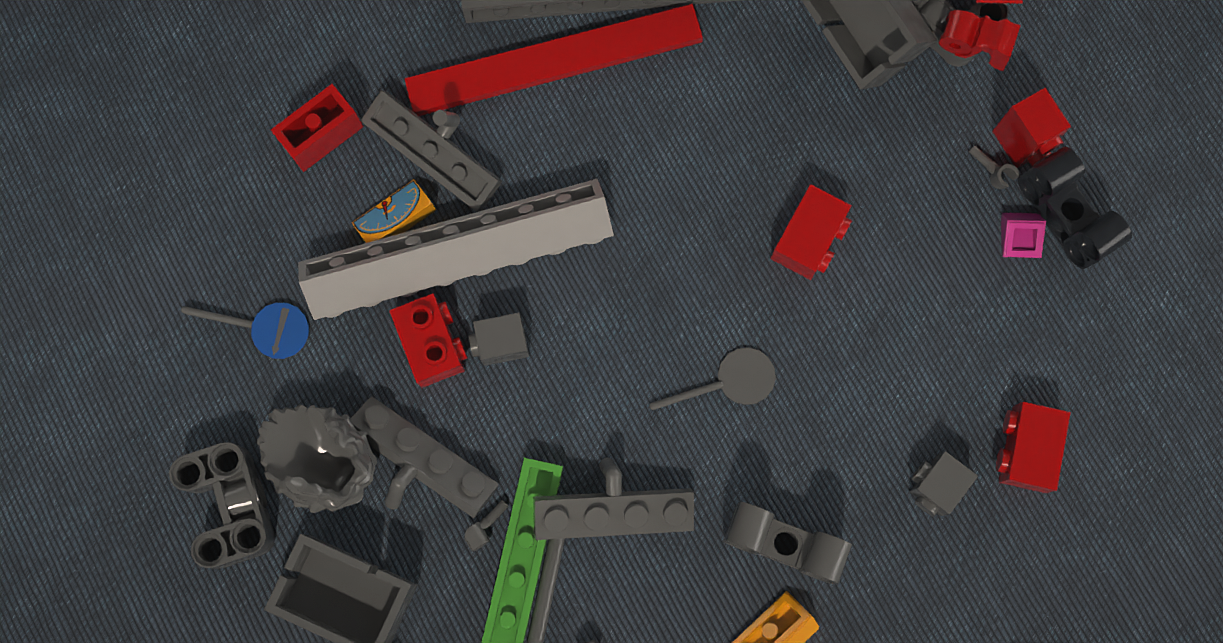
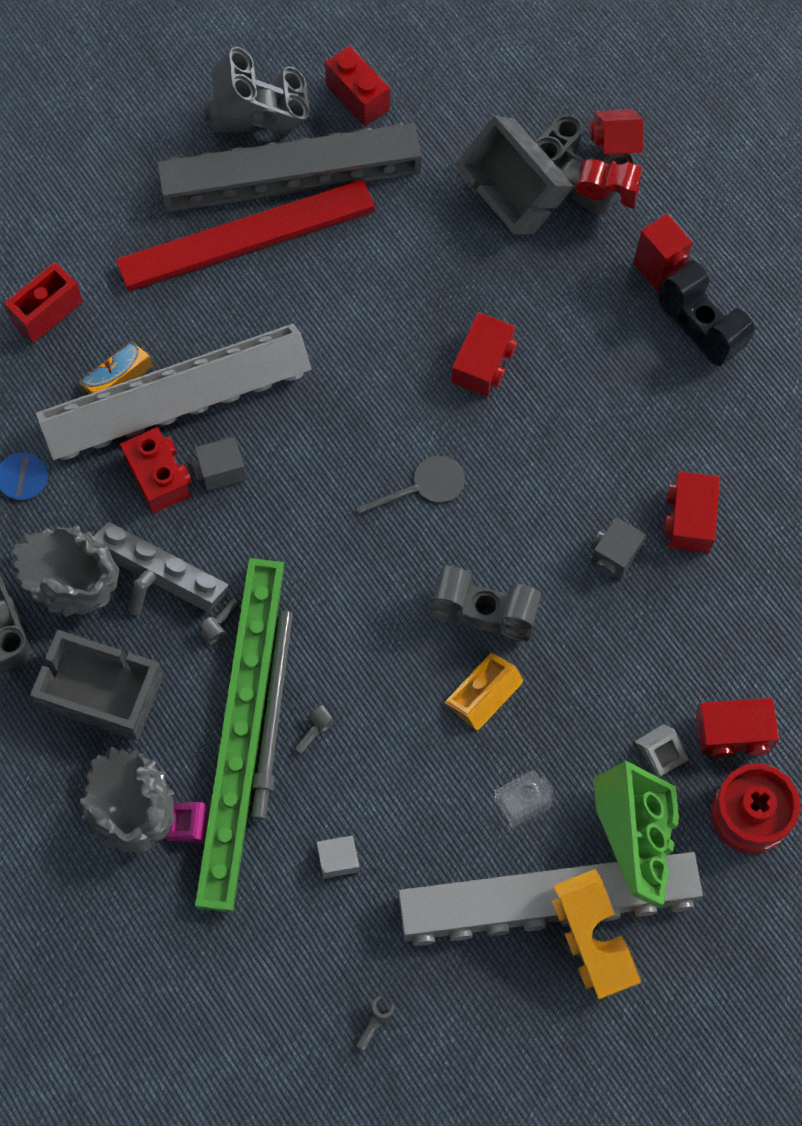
camera: 10 degrees left, 10 degrees down
(432, 148) = (146, 312): dark grey plate -> none
(613, 511) = (332, 594): dark grey plate -> none
(995, 170) = (647, 290): dark grey hand -> none
(1022, 235) = (667, 344): dark pink slope -> none

